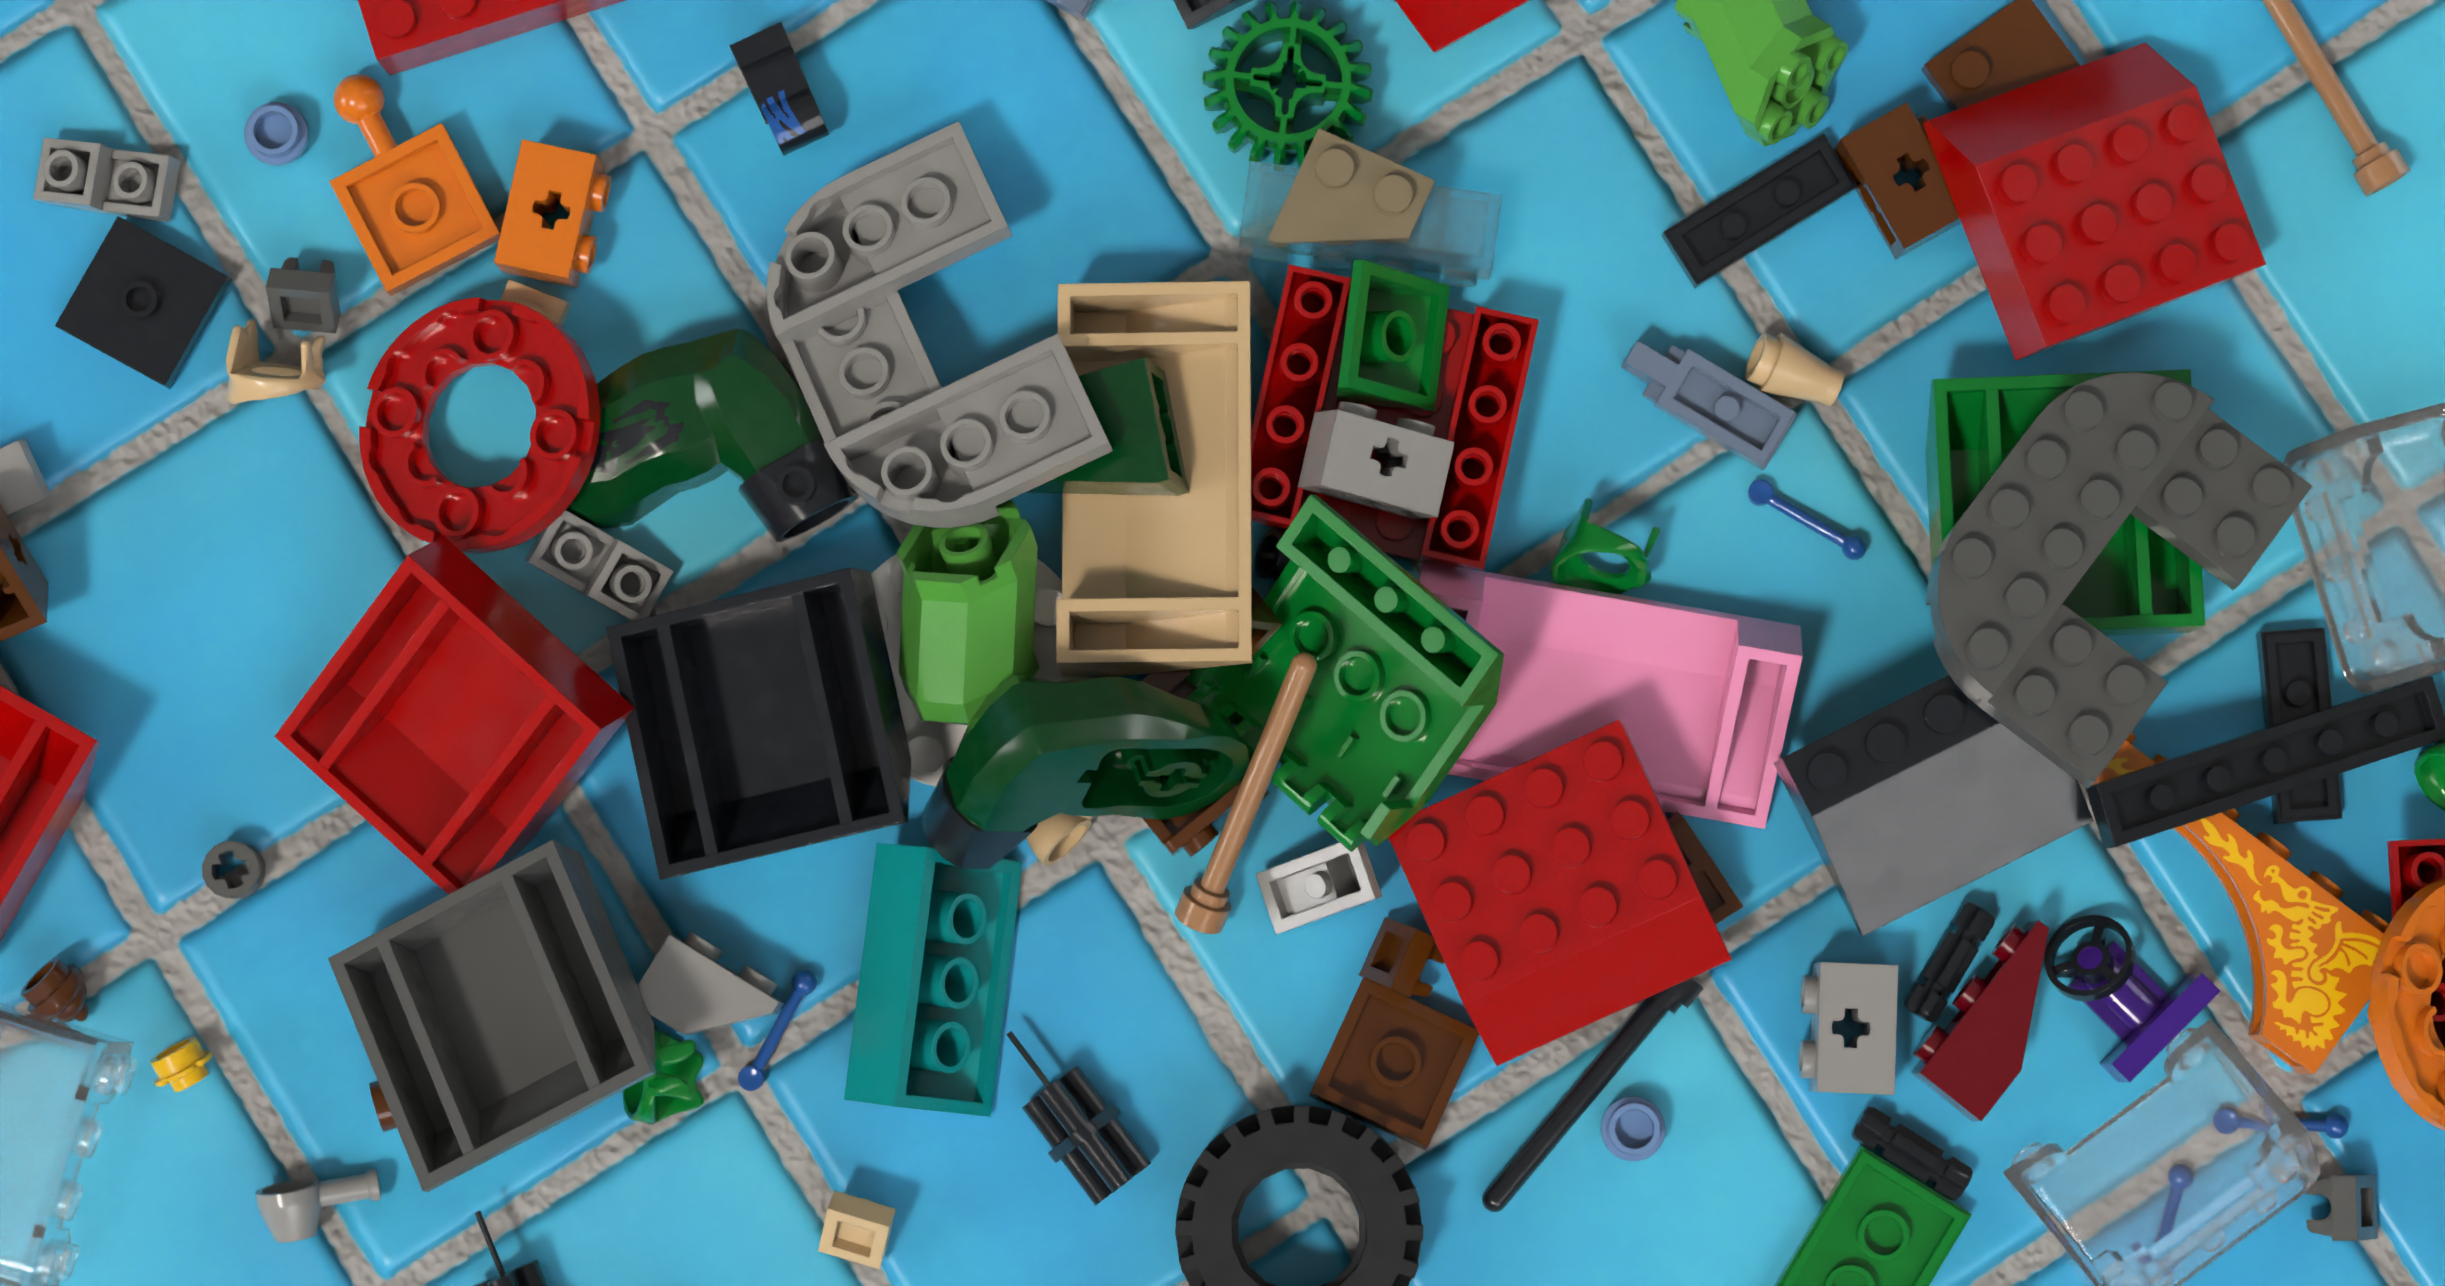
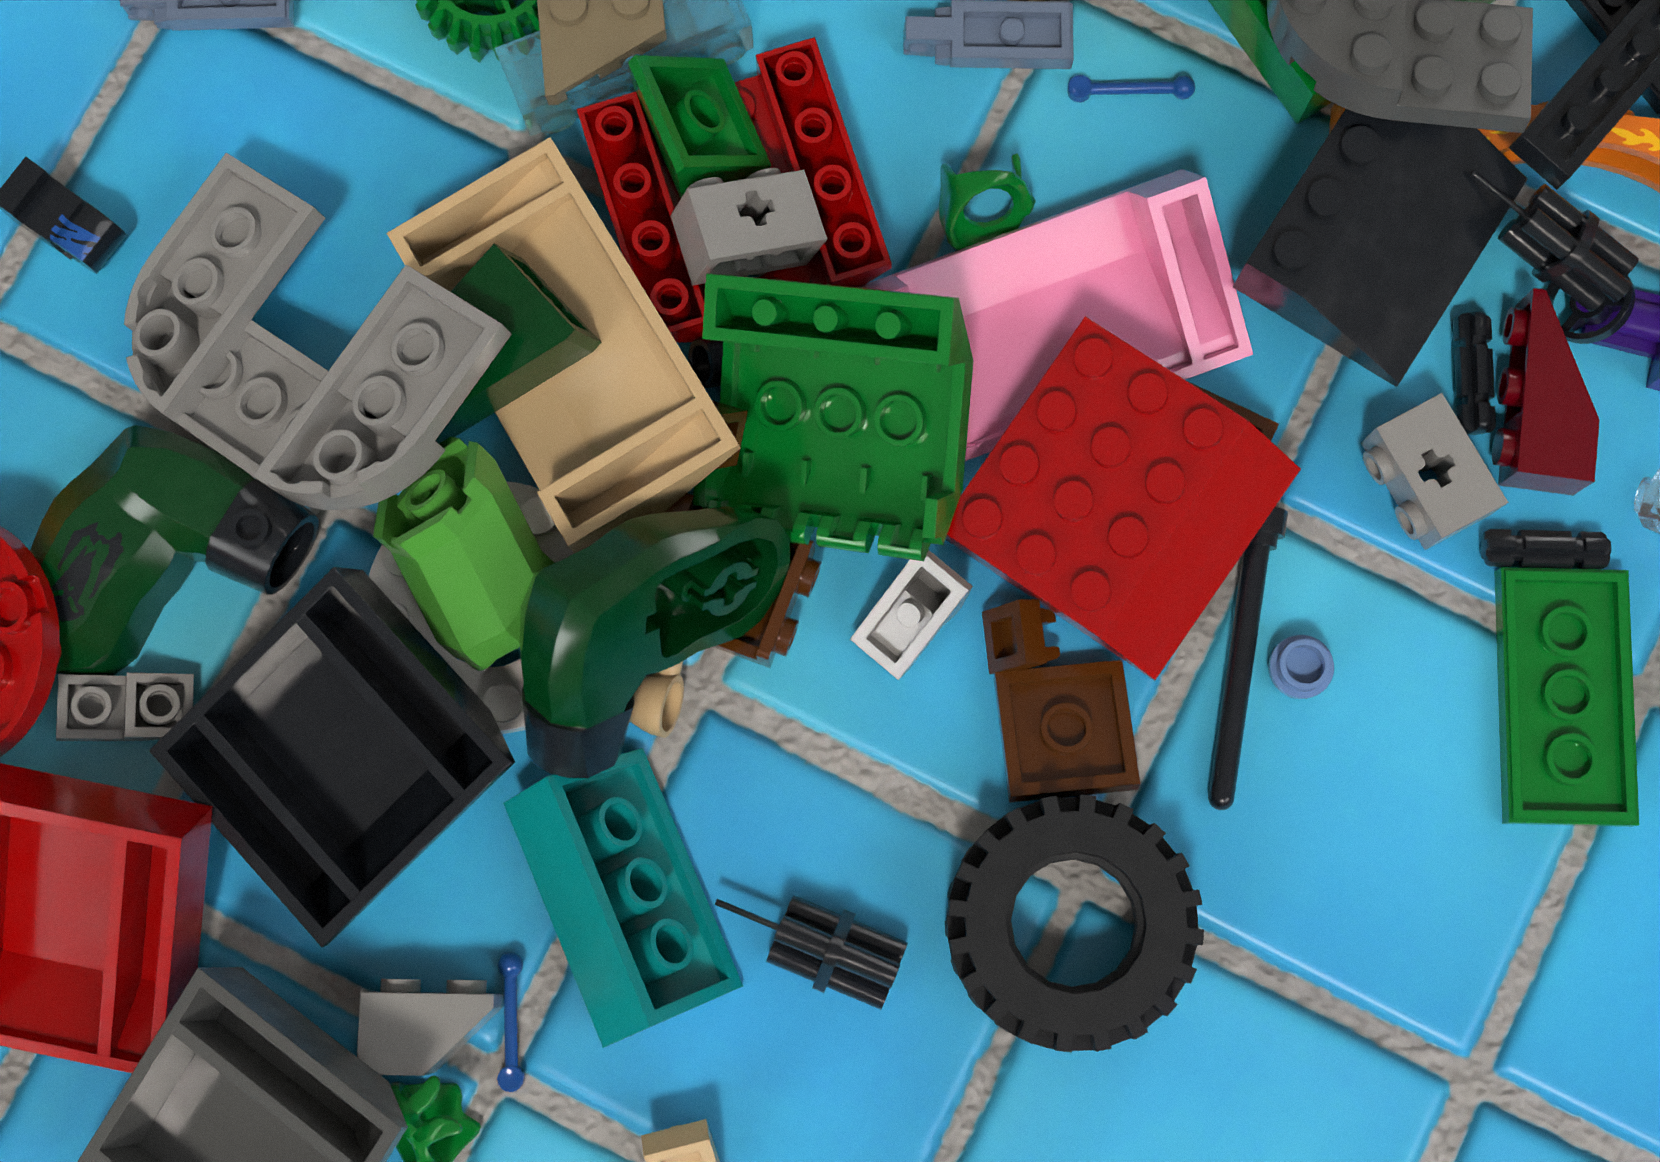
camera: 30 degrees left, 5 degrees down
(1206, 902) = (821, 686): medium nougat piece -> none
(2088, 902) = (1566, 247): none -> black piece

